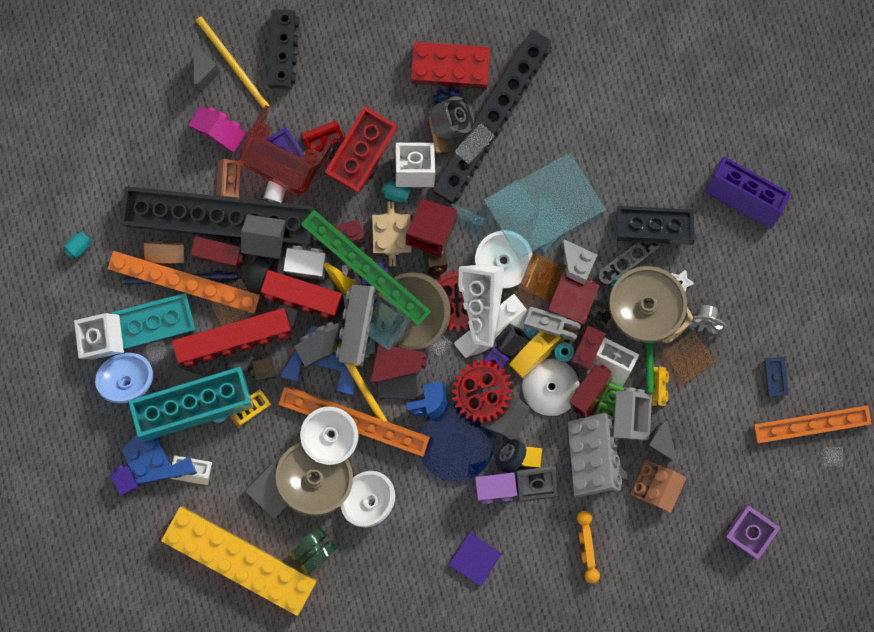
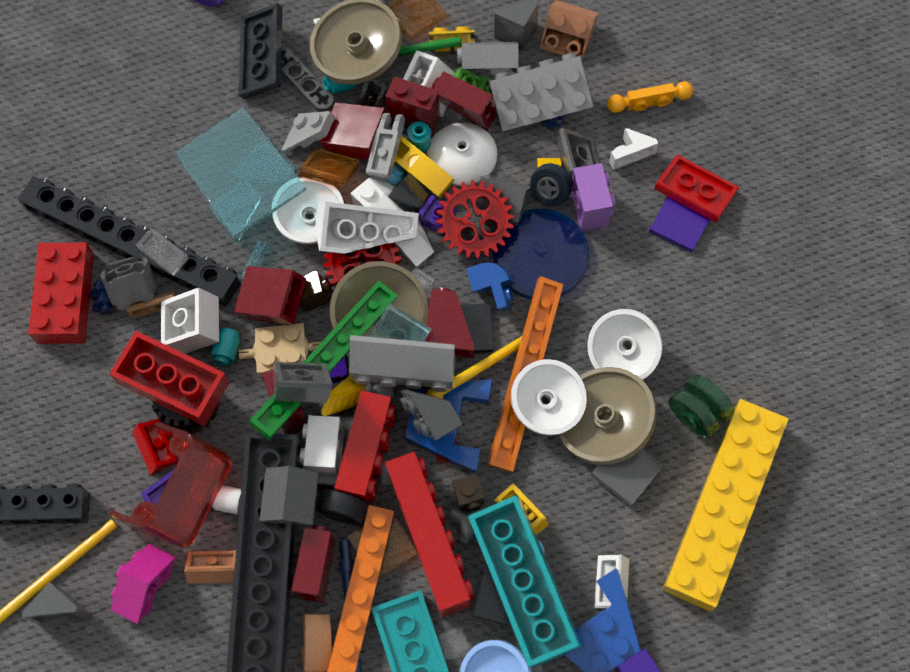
camera: 90 degrees left, 15 degrees down
(343, 248) = (301, 382): none -> dark grey slope
(502, 574) = (696, 188): none -> red tile
(542, 531) = (637, 147): none -> white slope

